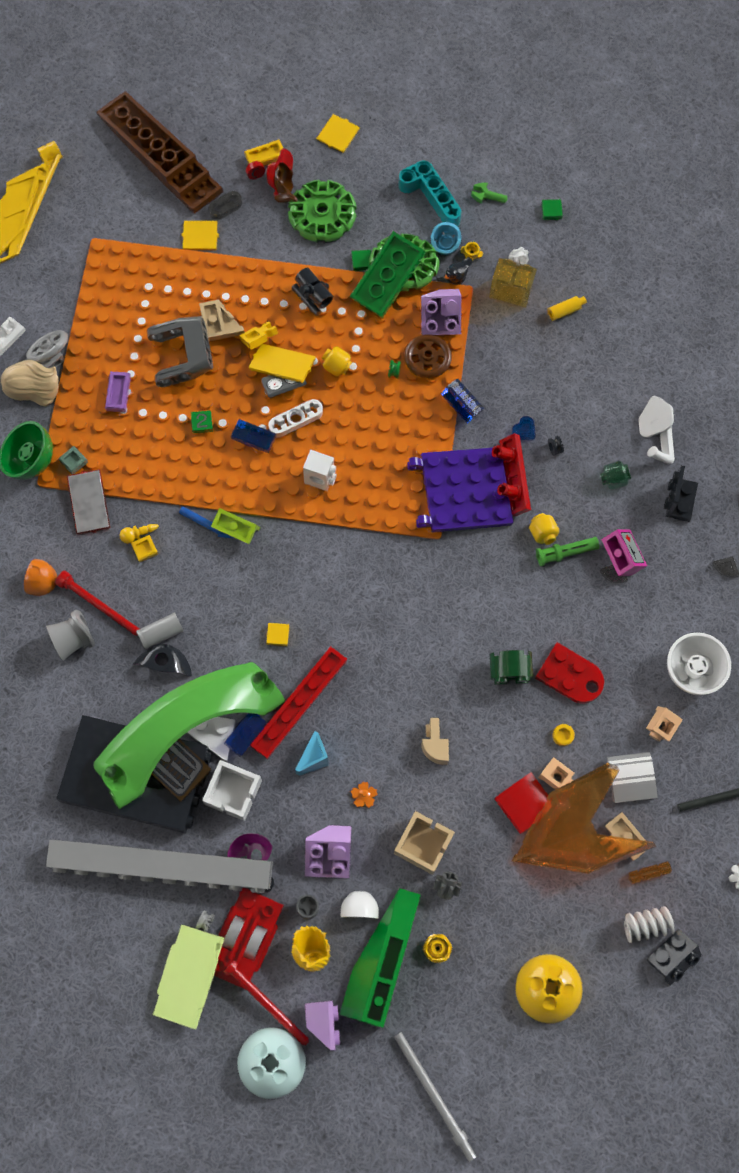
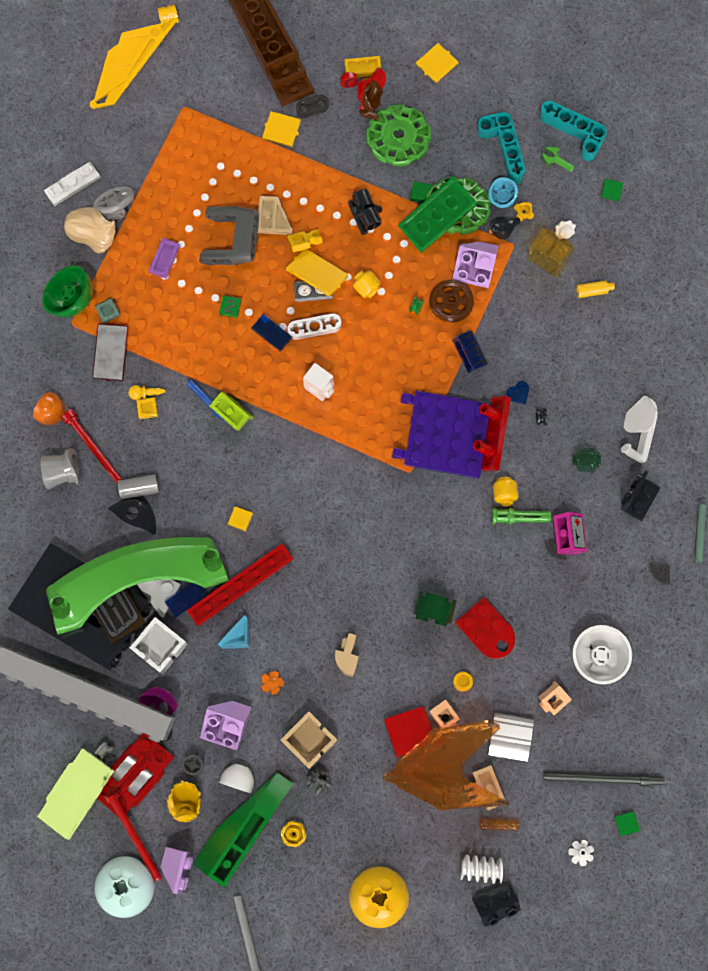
camera: 20 degrees right, 5 degrees up
(471, 151) = (570, 127): none -> teal beam

